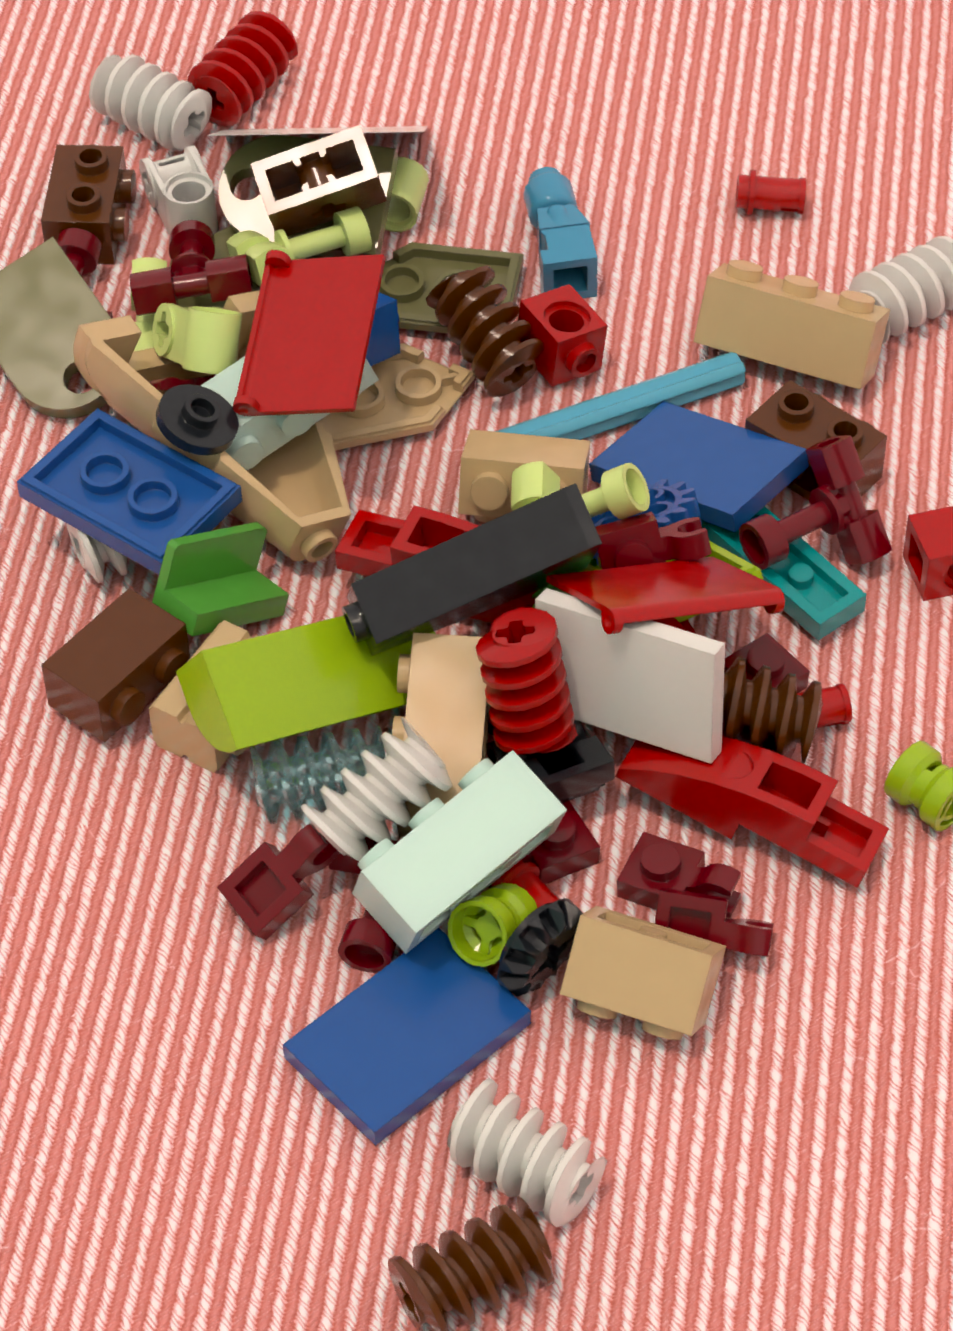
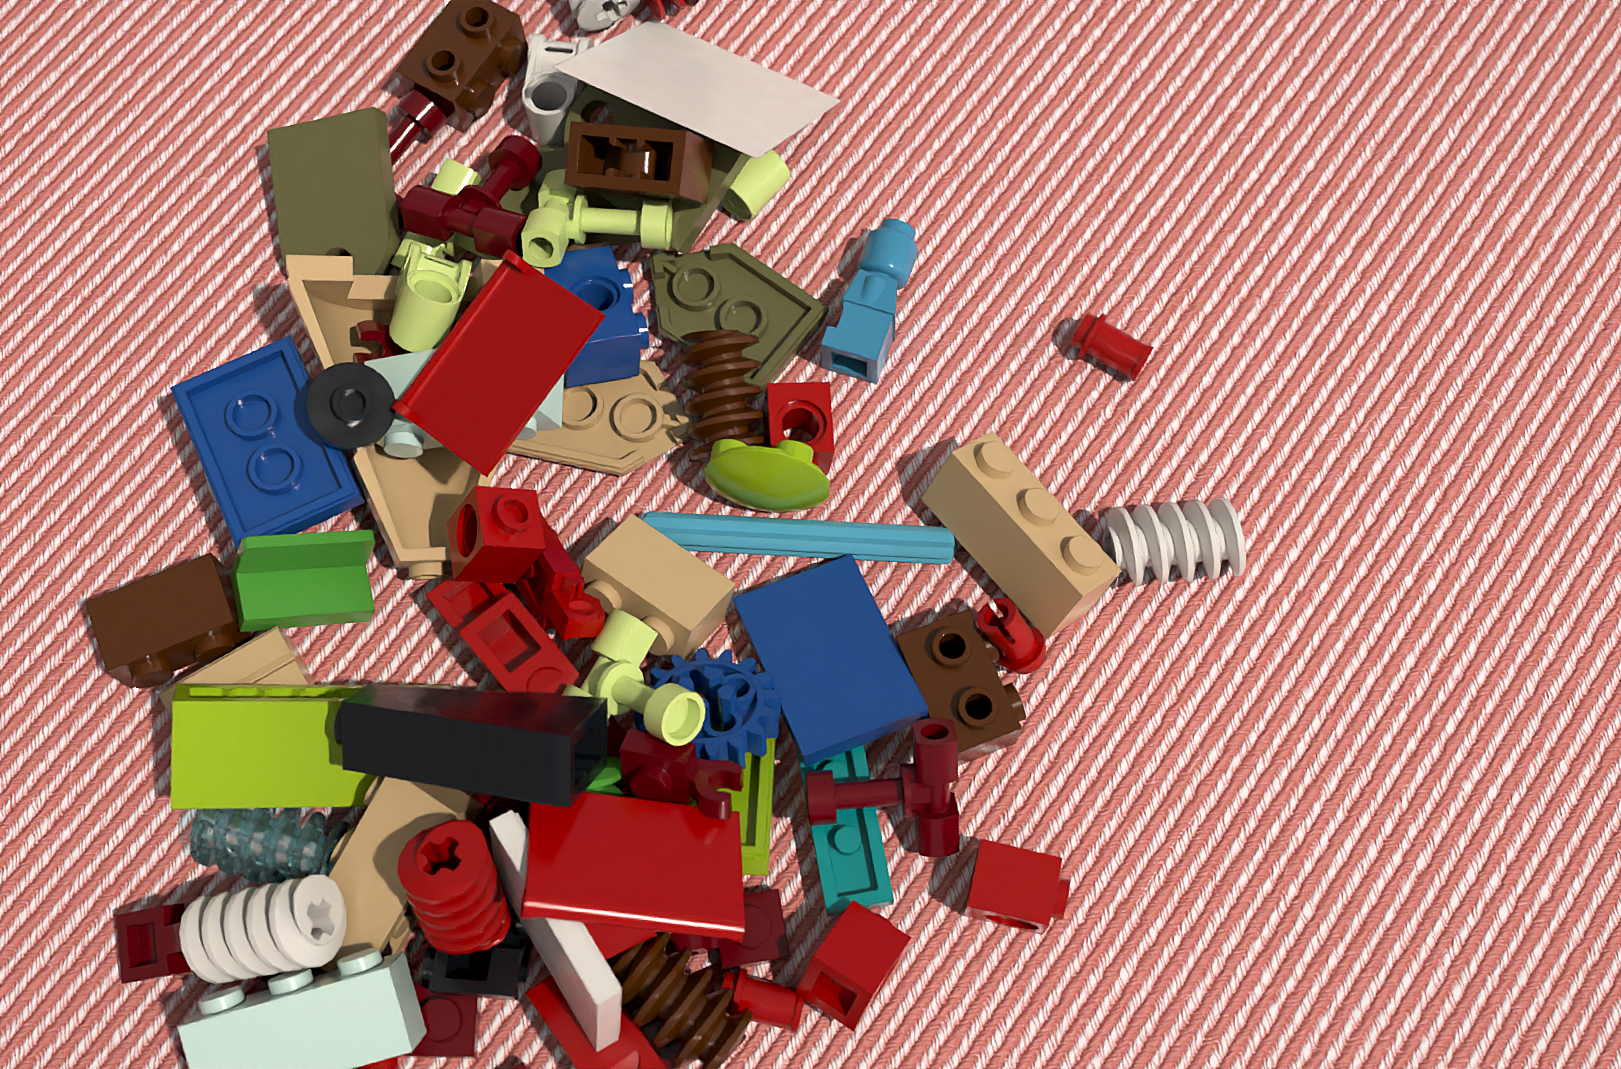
camera: 30 degrees right, 20 degrees up
(376, 469) = (495, 535): none -> red brick
(437, 485) = (556, 593): none -> red hinge
(565, 362) = (767, 477): none -> lime dish
(834, 386) = (1019, 645): none -> red pin
(867, 643) = (852, 964): none -> red brick

